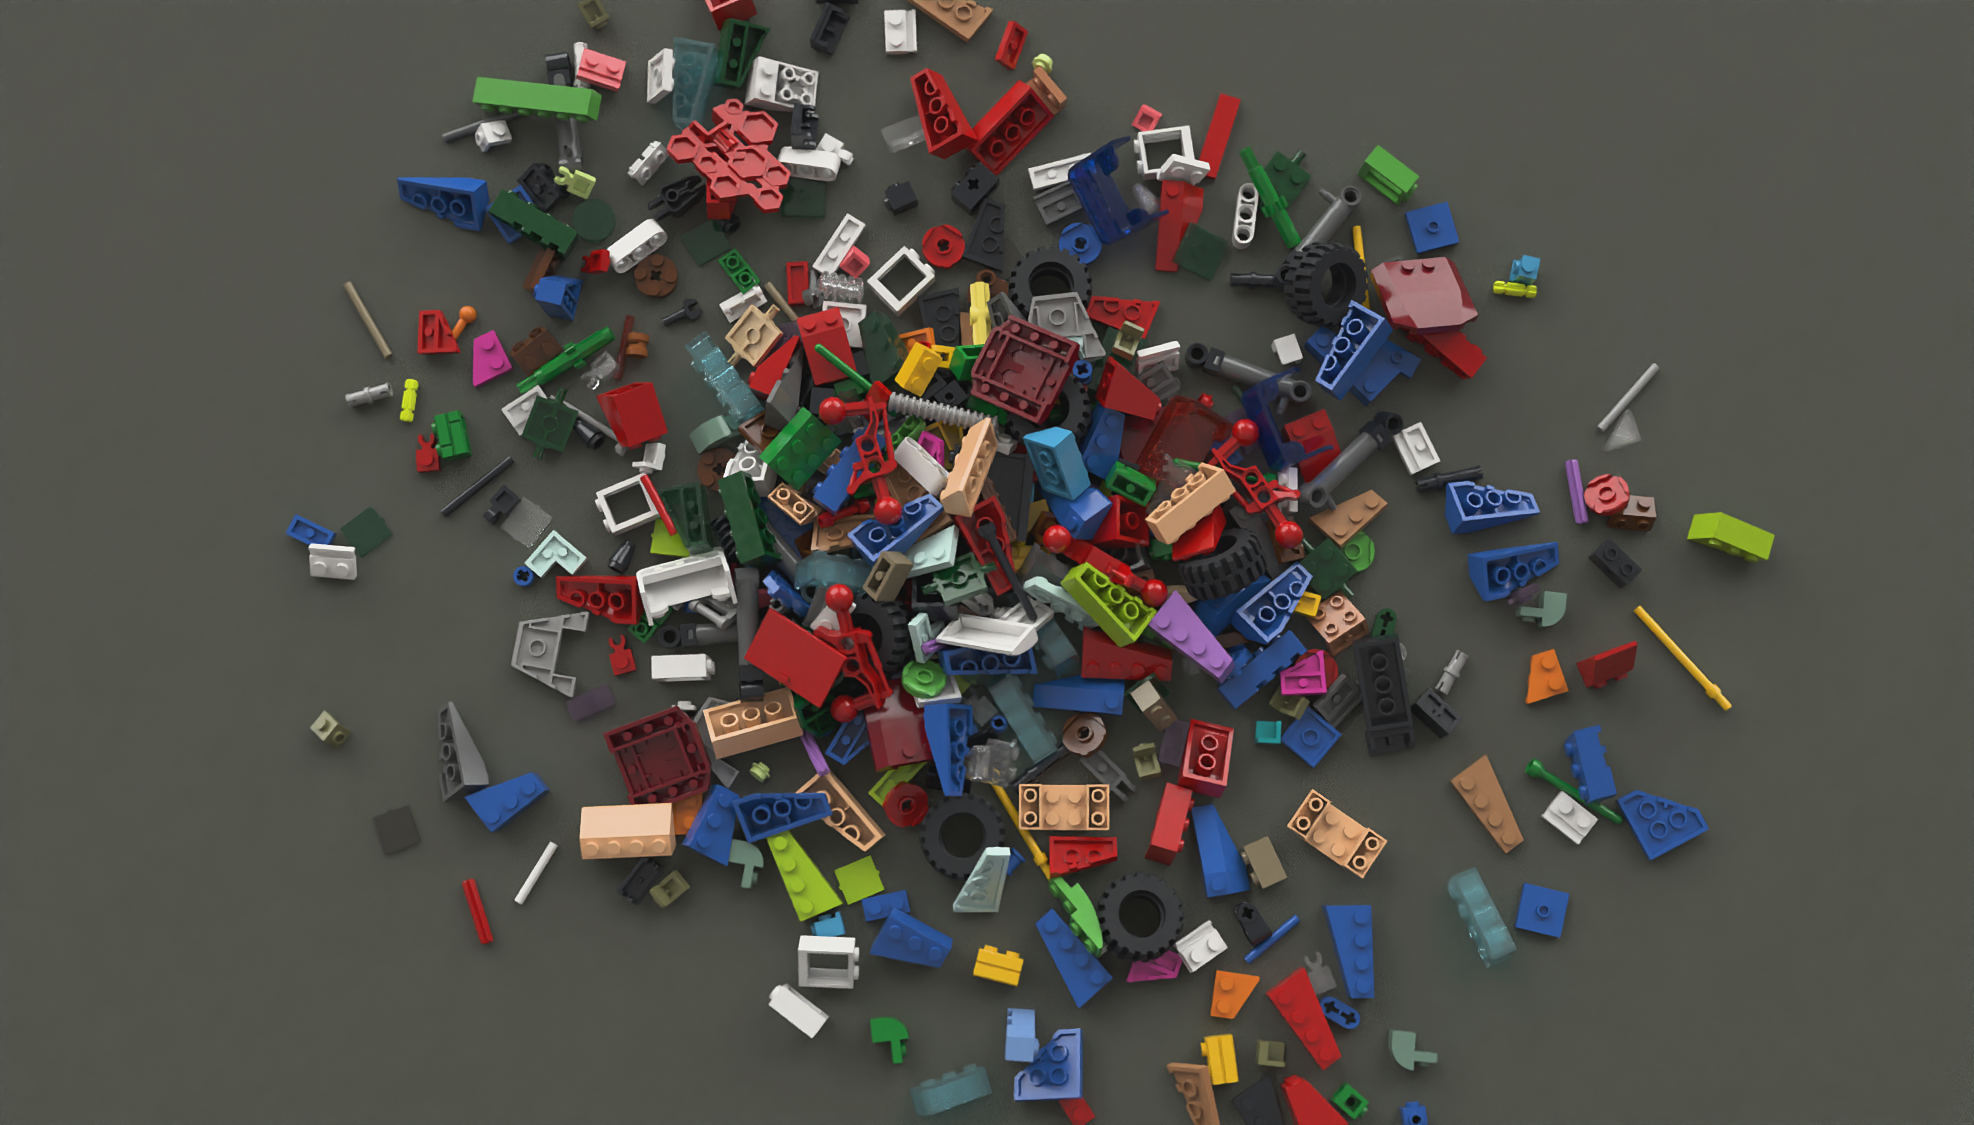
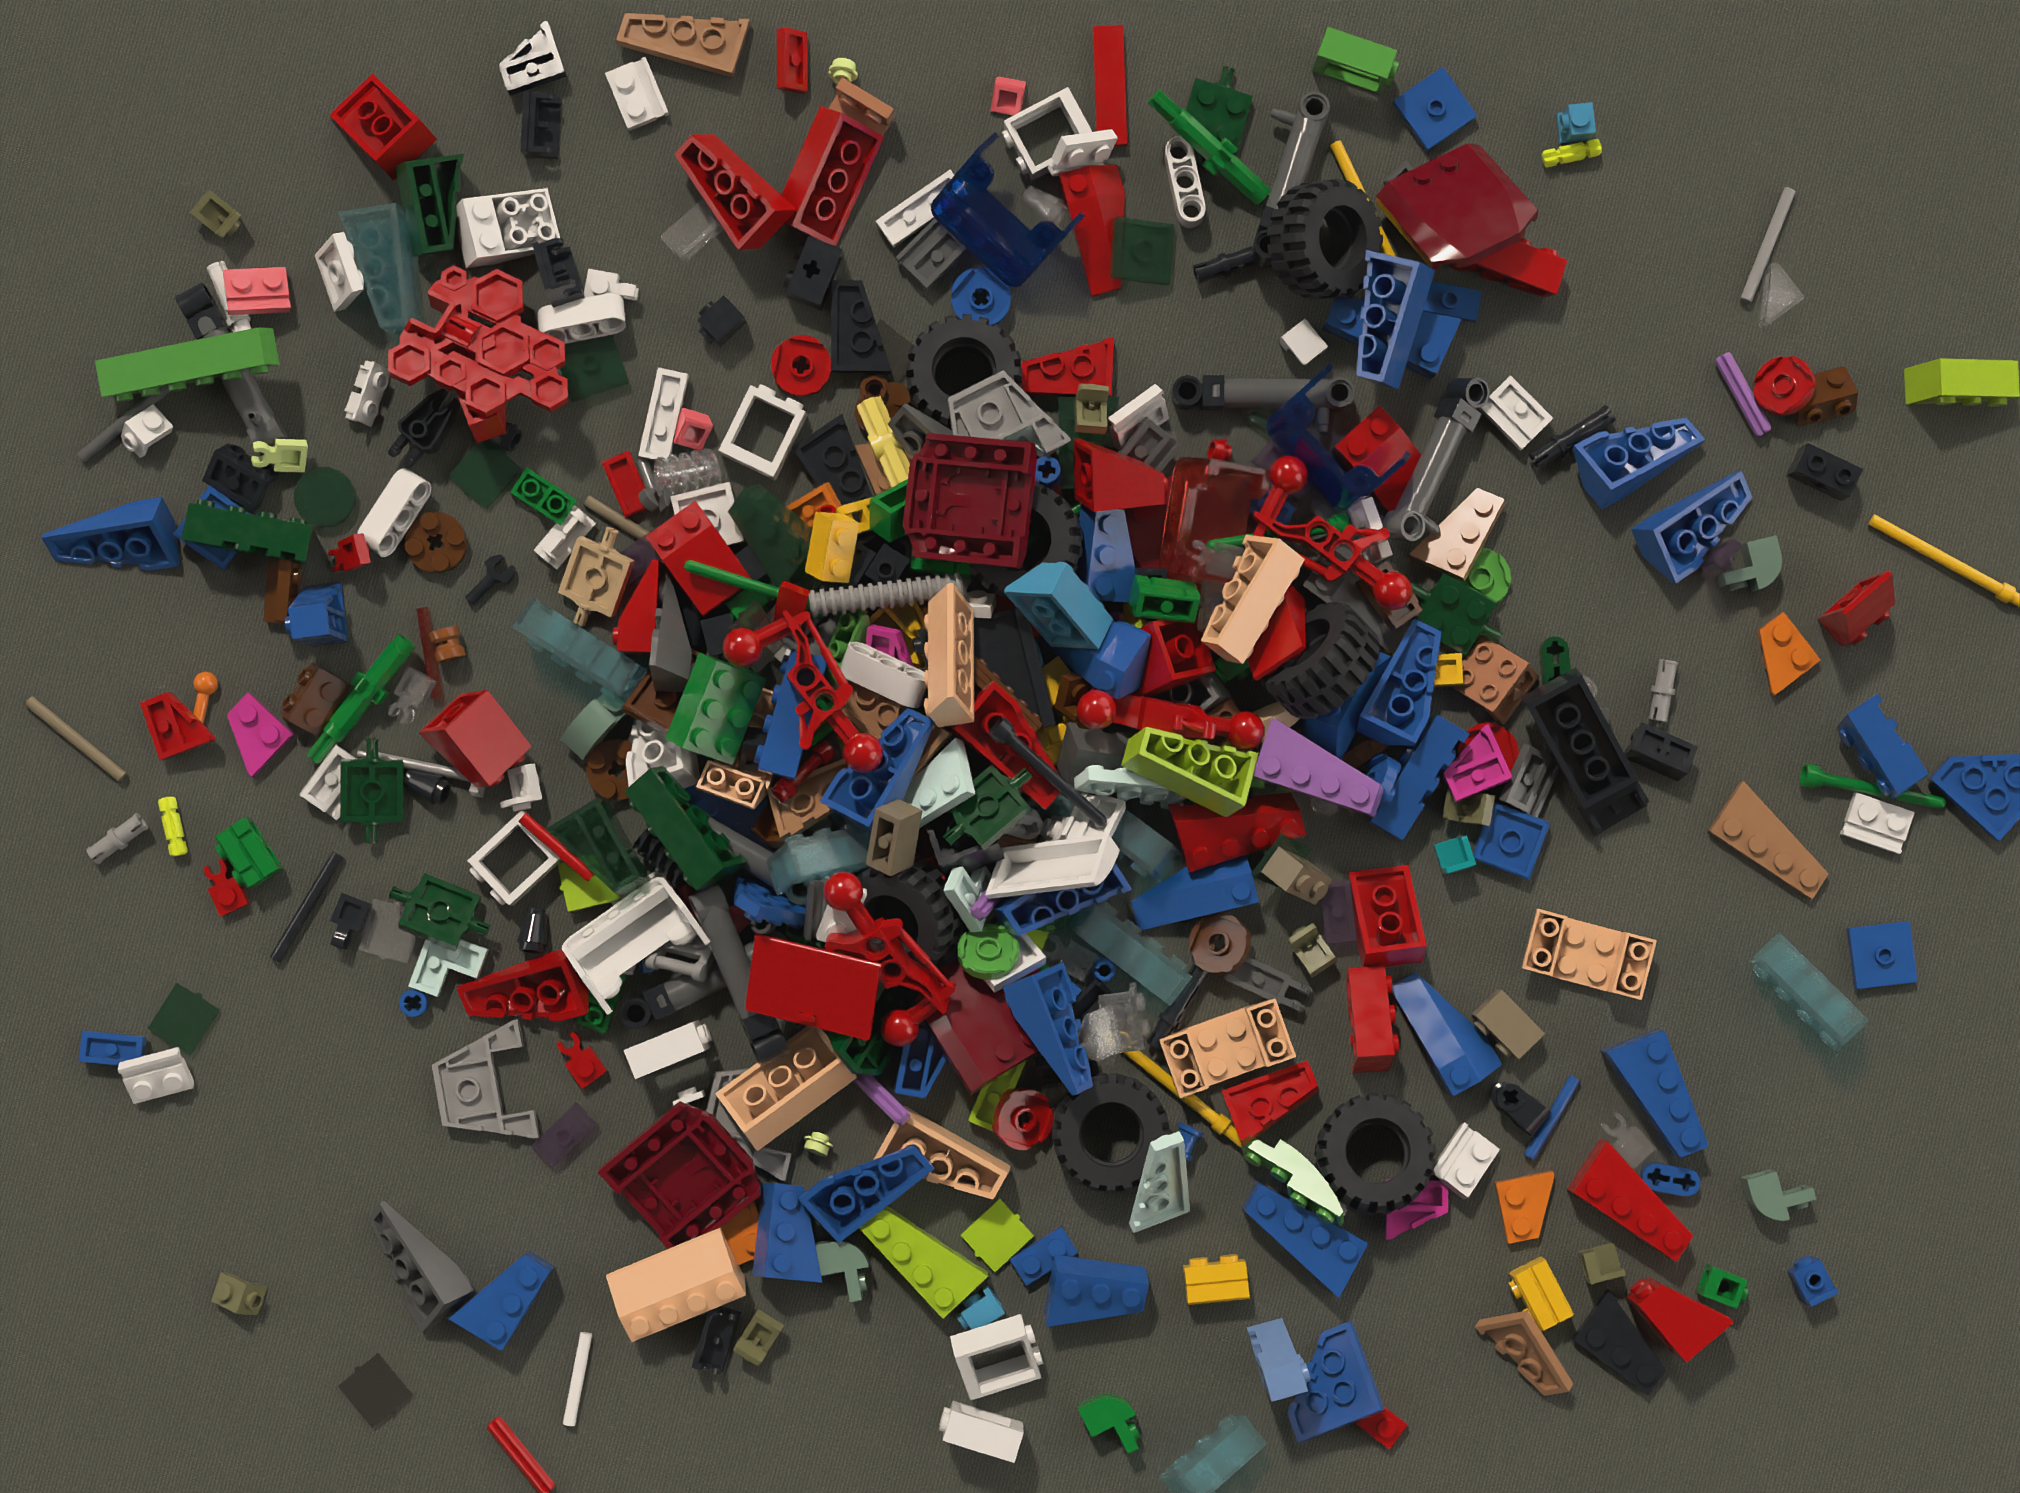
camera: 25 degrees left, 5 degrees up
(564, 520) = (439, 912): none -> dark green plate

